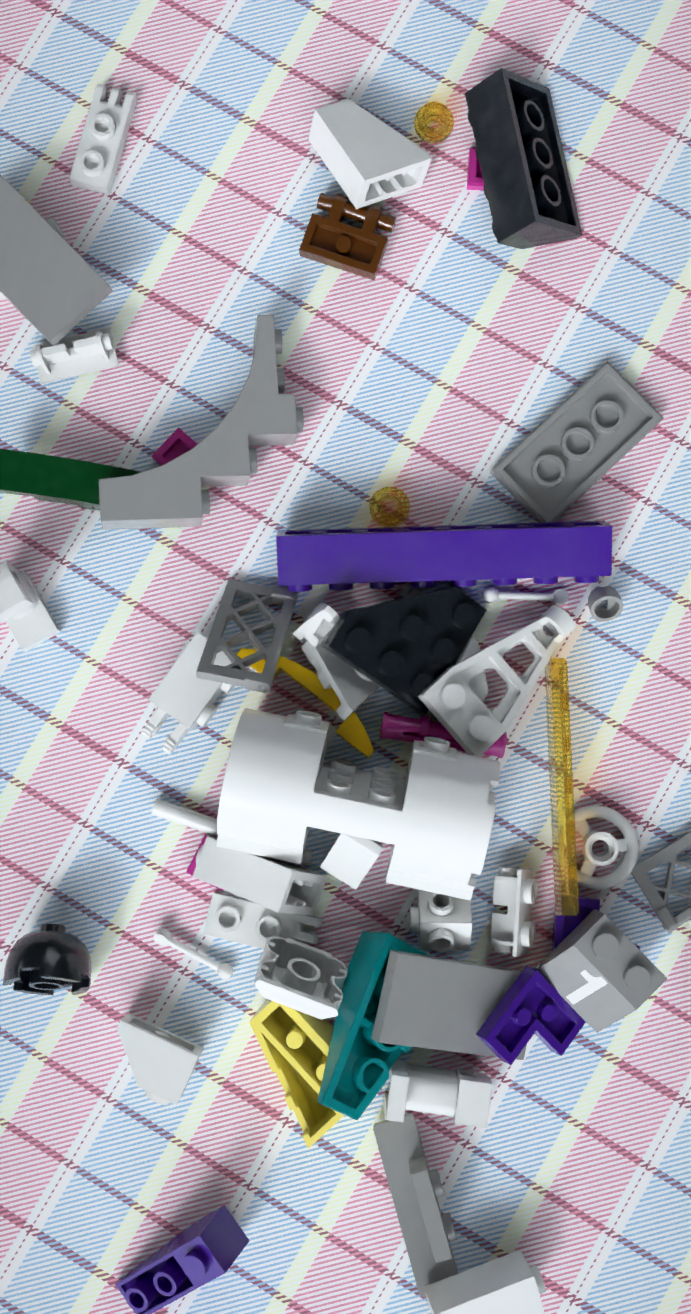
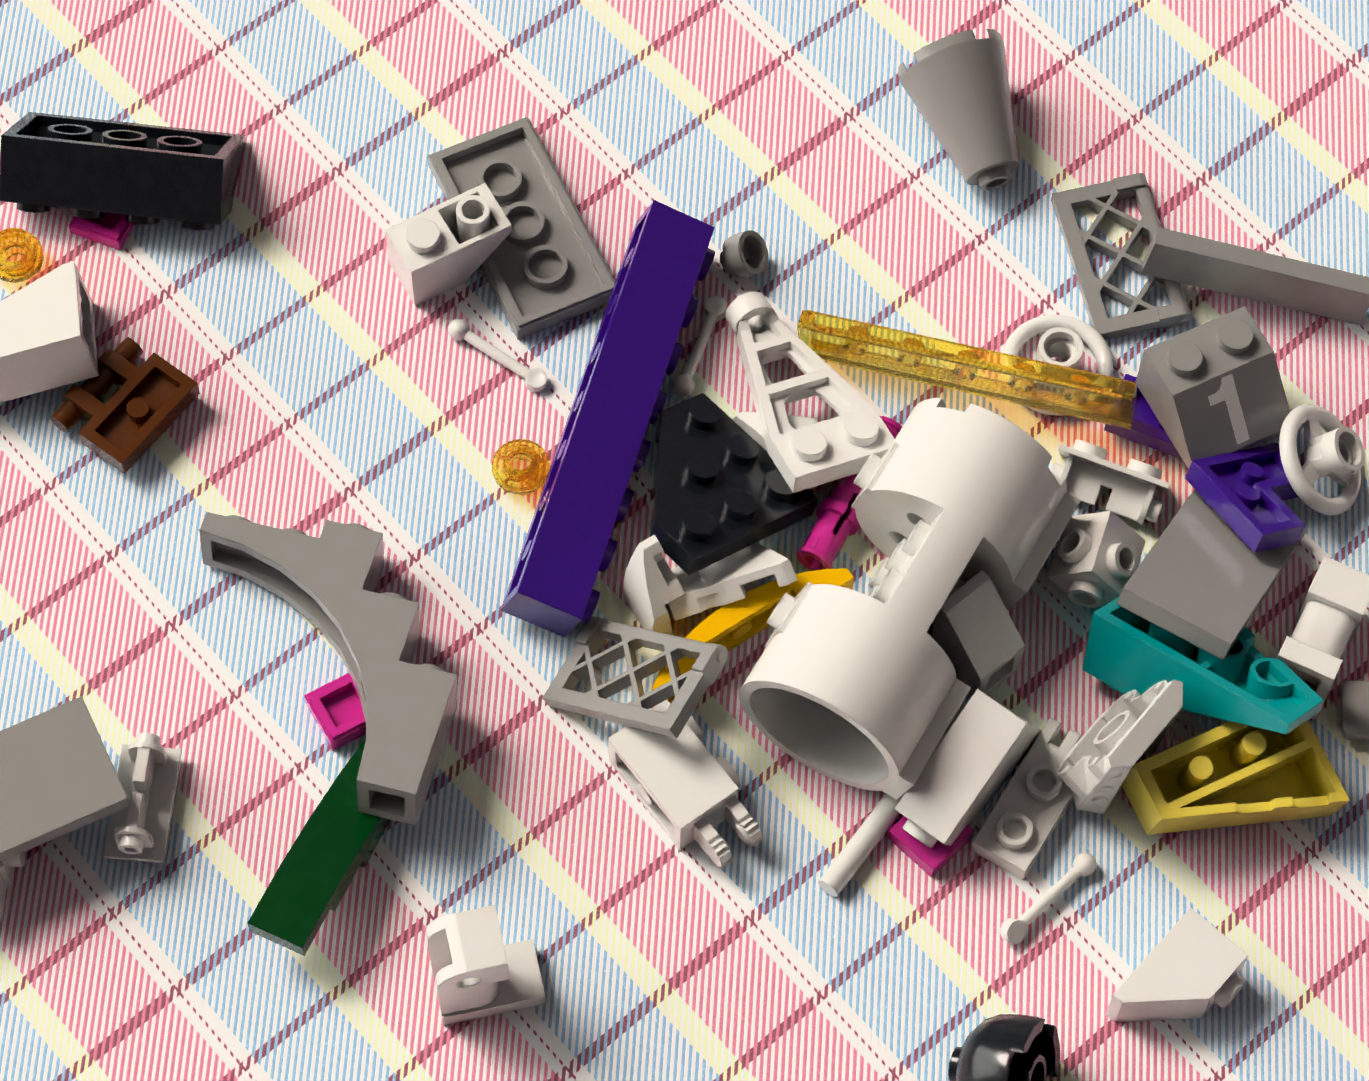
camera: 80 degrees left, 20 degrees down
(462, 493) = (534, 378): none -> white hinge
(537, 397) = (446, 243): none -> white slope
(579, 1064) = (1330, 454): none -> white piece

